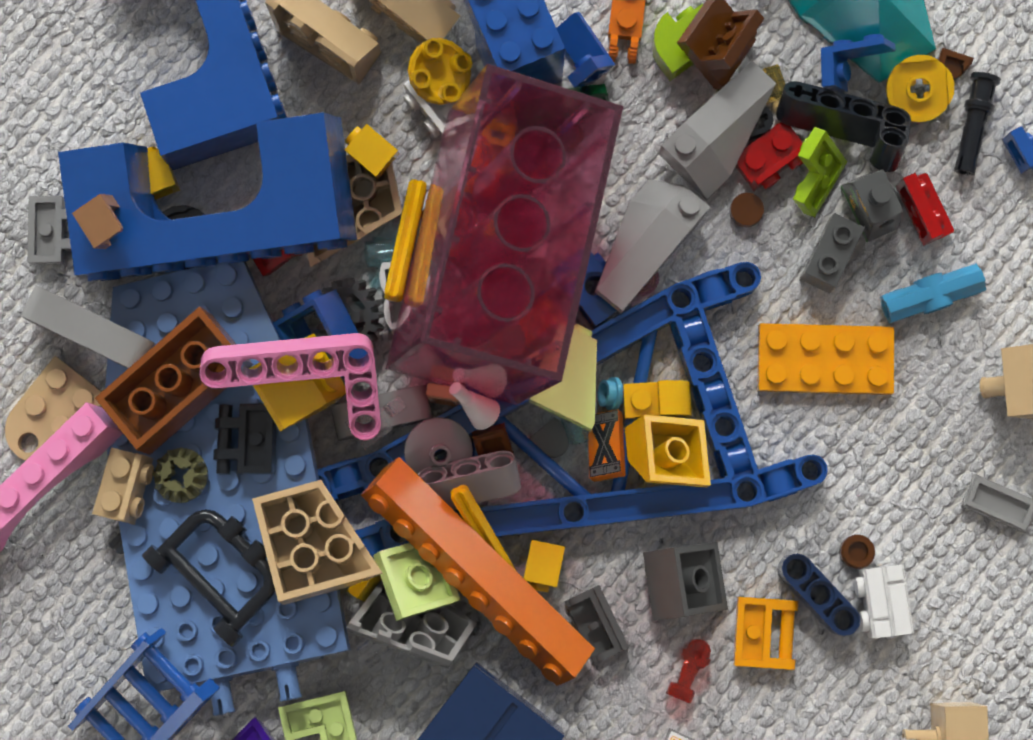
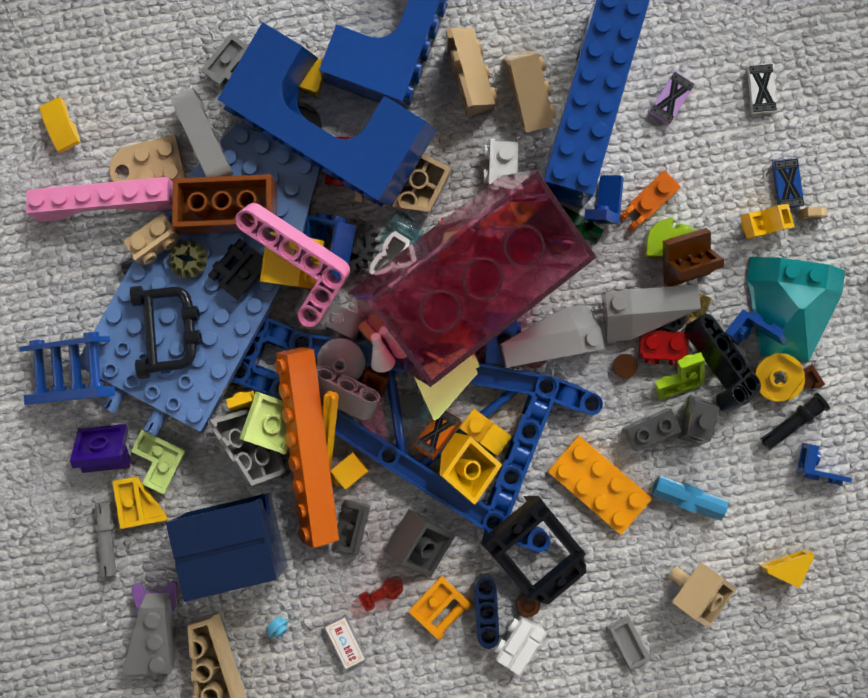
camera: 40 degrees right, 5 degrees up
(99, 220) = (252, 80): medium nougat panel -> none
(310, 543) = (224, 357): tan wedge -> none
(370, 150) = (438, 162): yellow brick -> none
(405, 241) = (417, 229): yellow axle -> none
(439, 71) = (516, 147): yellow dish -> none
(610, 393) = (463, 406): medium azure plate -> none
(775, 475) = (519, 525): none -> black wedge
(924, 208) = (725, 446): red bracket -> none

